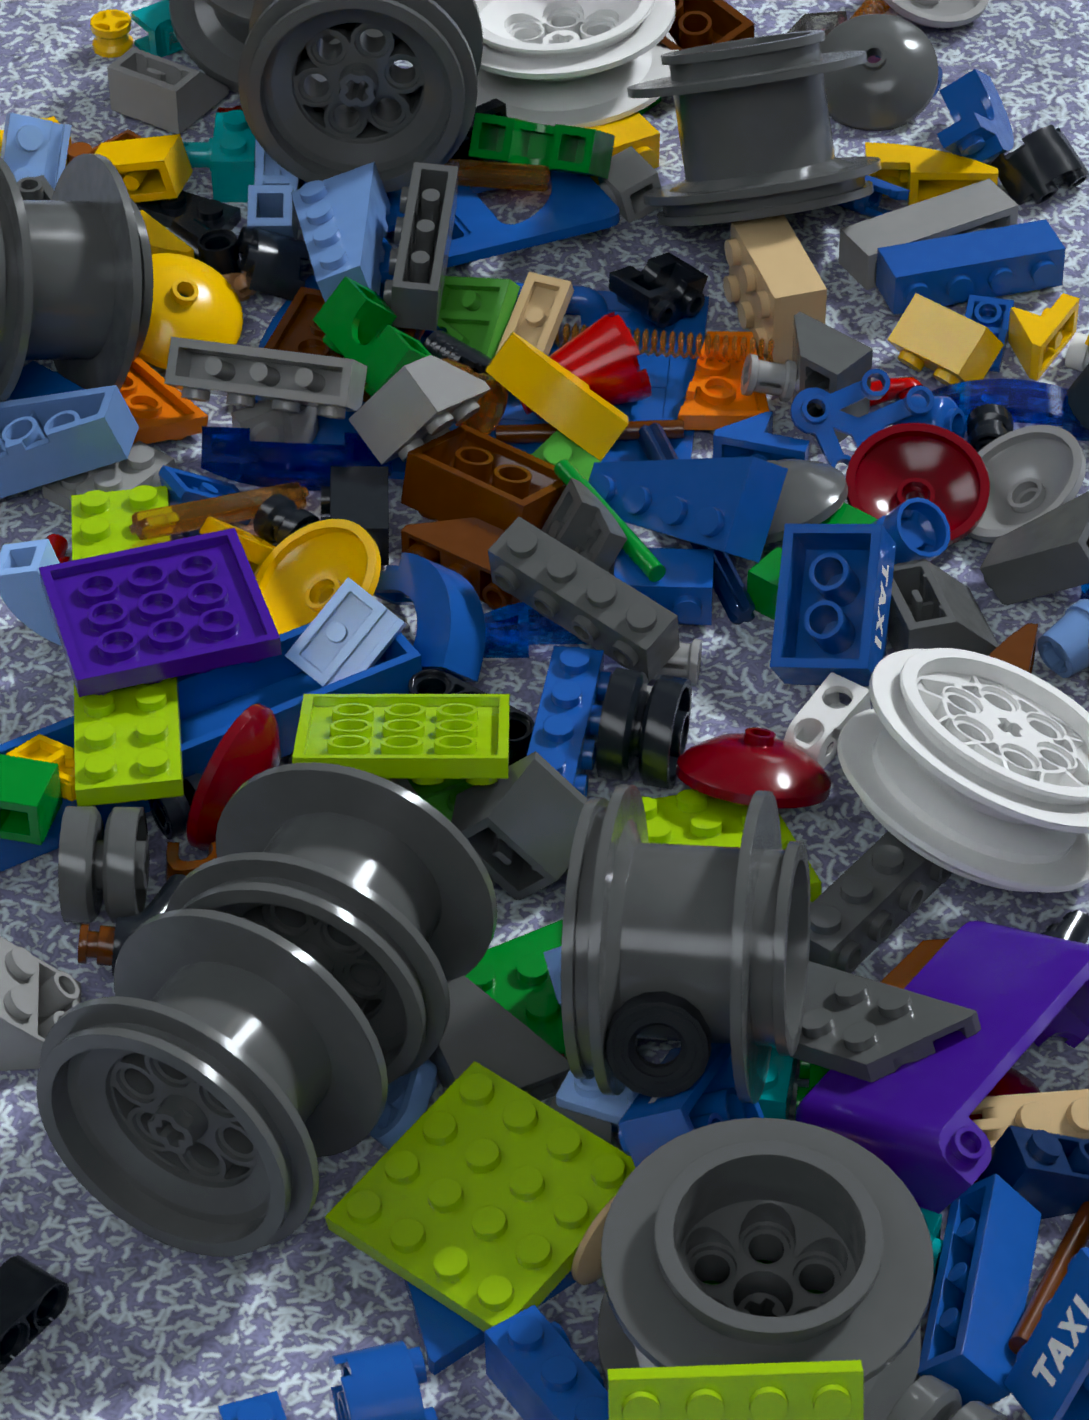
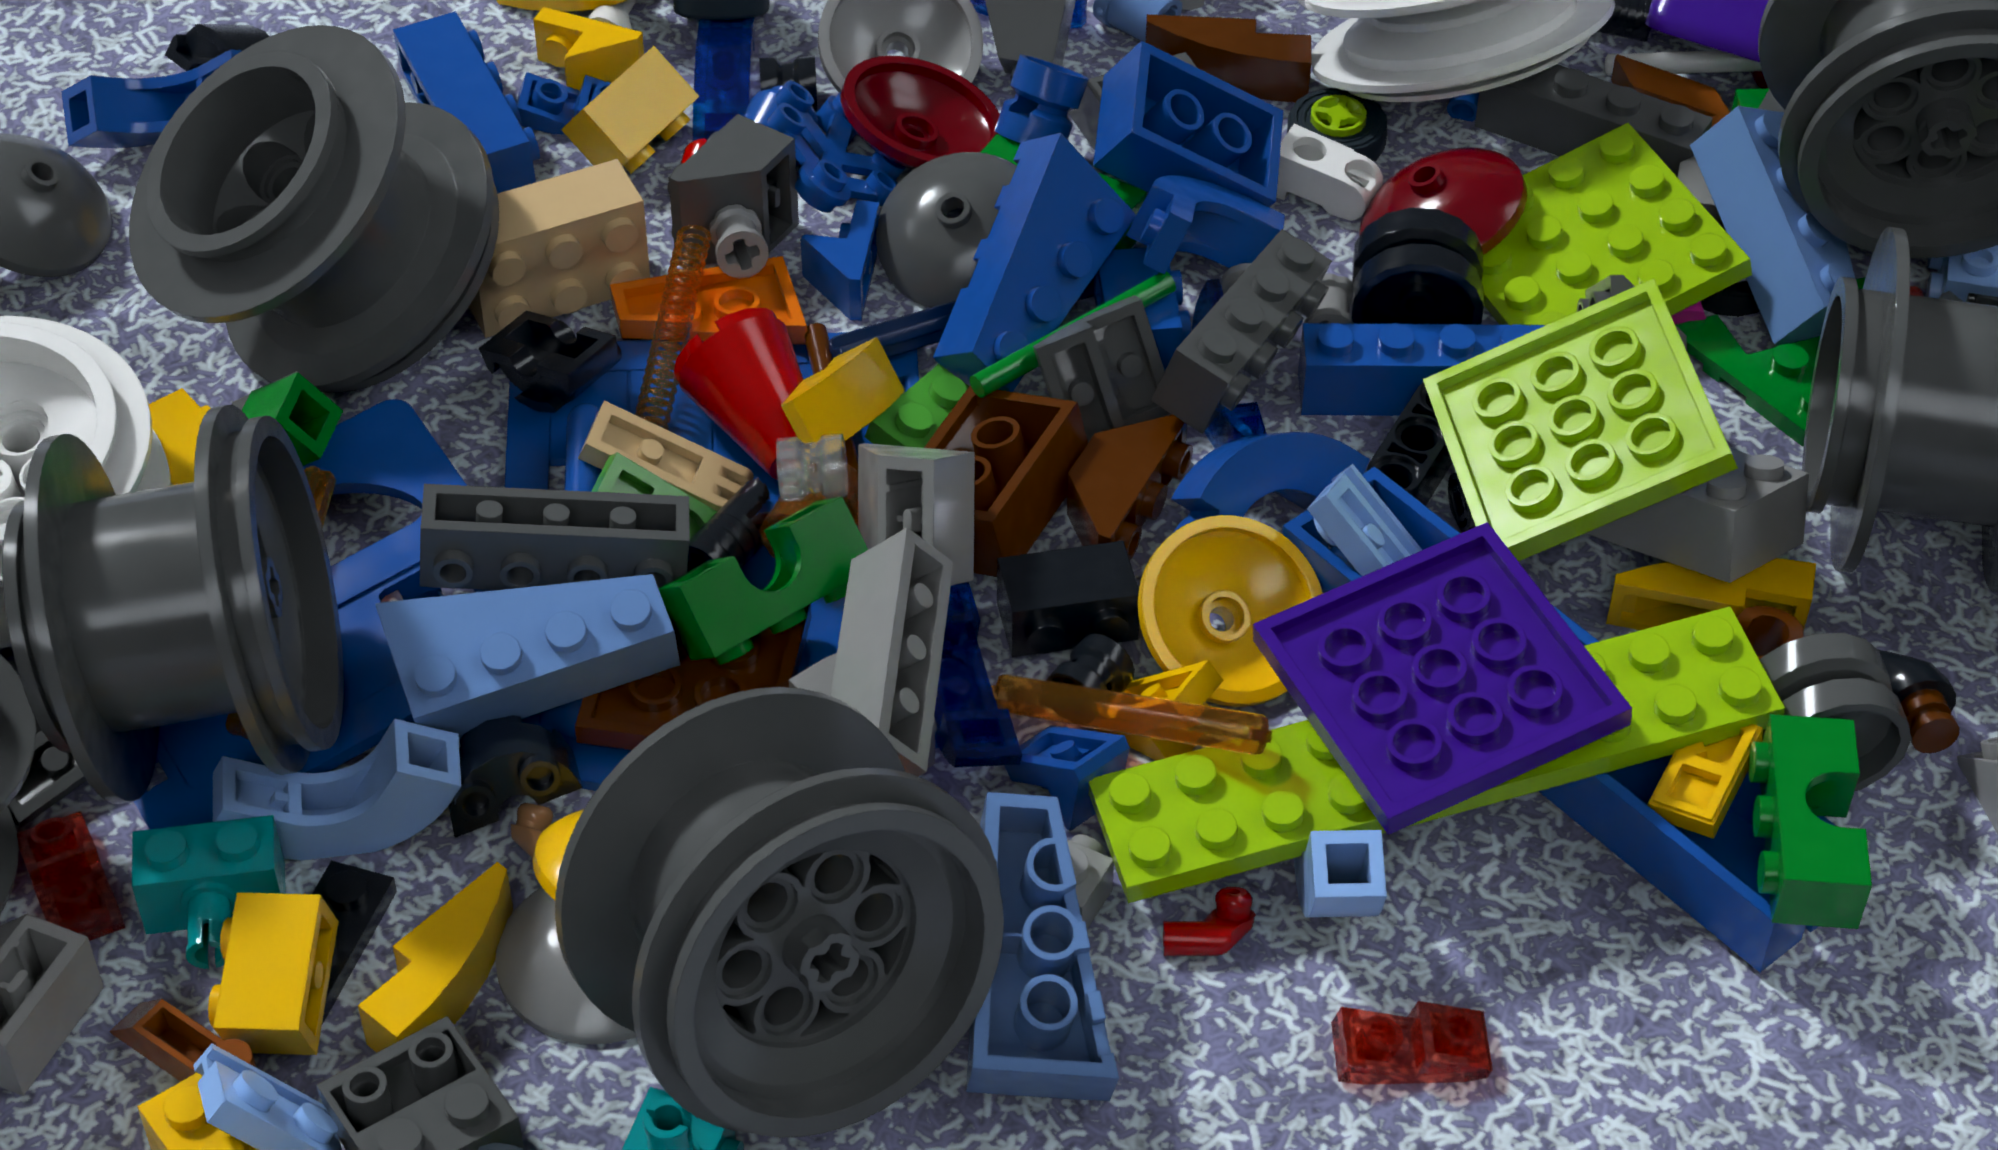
camera: 100 degrees left, 5 degrees up
(210, 246) = (448, 868): black piece -> none
(243, 752) = (1612, 586): dark red dish -> none
(462, 346) = (797, 467): none -> clear wheel
(738, 595) = (1203, 221): none -> blue arch

